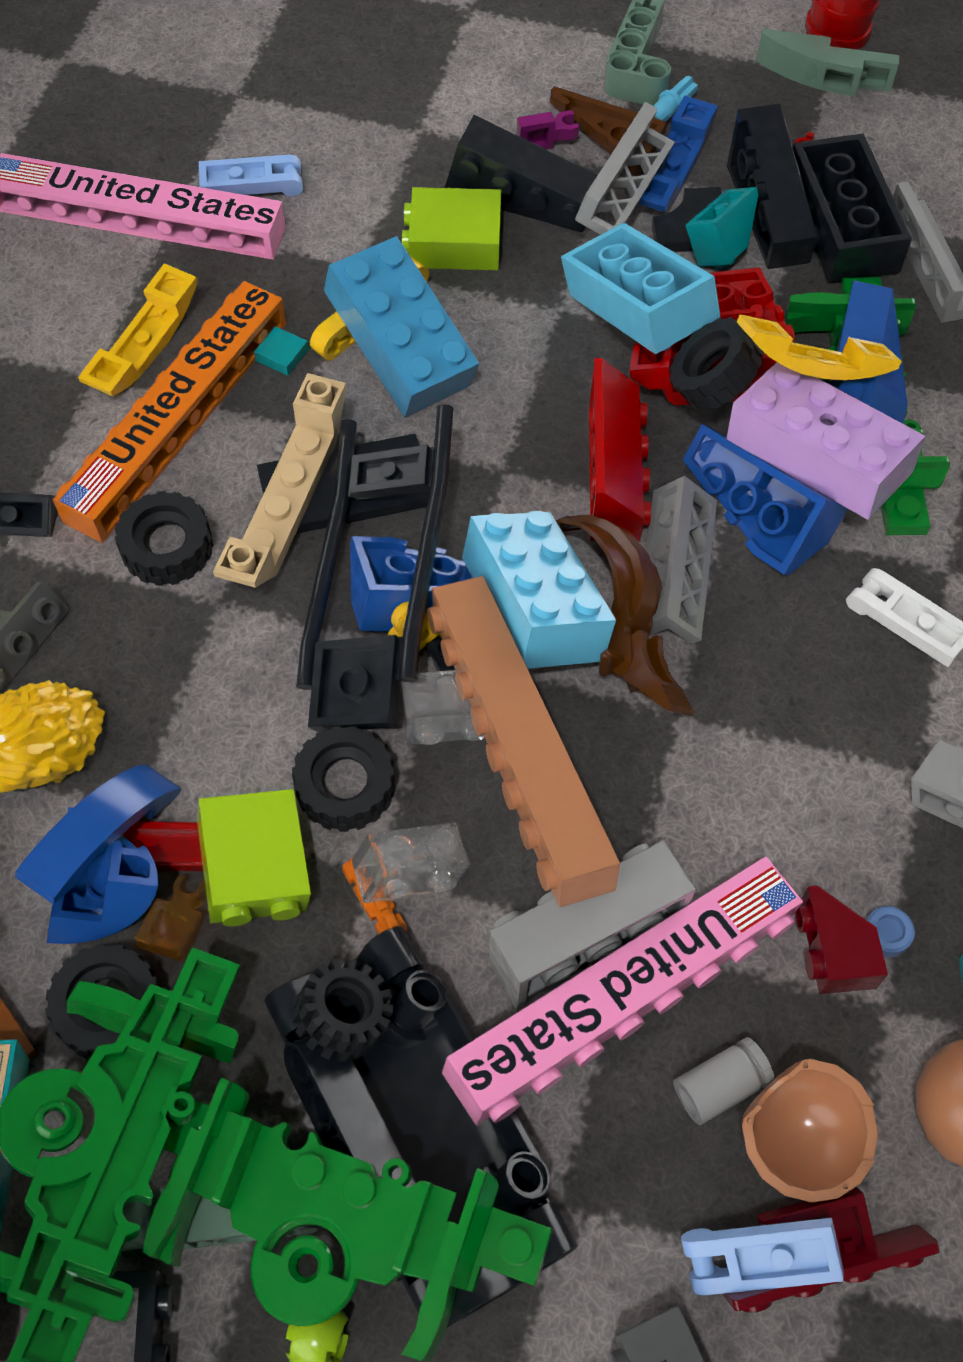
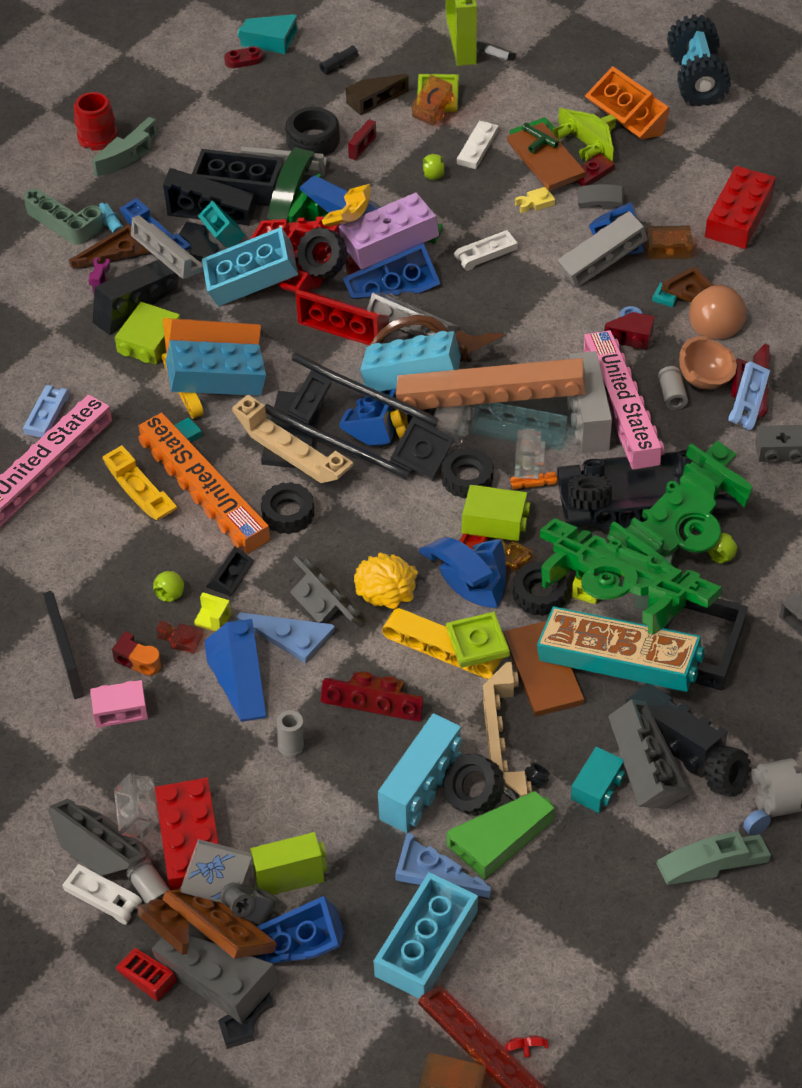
camera: 65 degrees left, 10 degrees down
(477, 299) = (210, 331): none -> orange slope
(490, 836) = (501, 427): none -> clear light blue fence
(879, 266) = (288, 183): none -> dark green slope

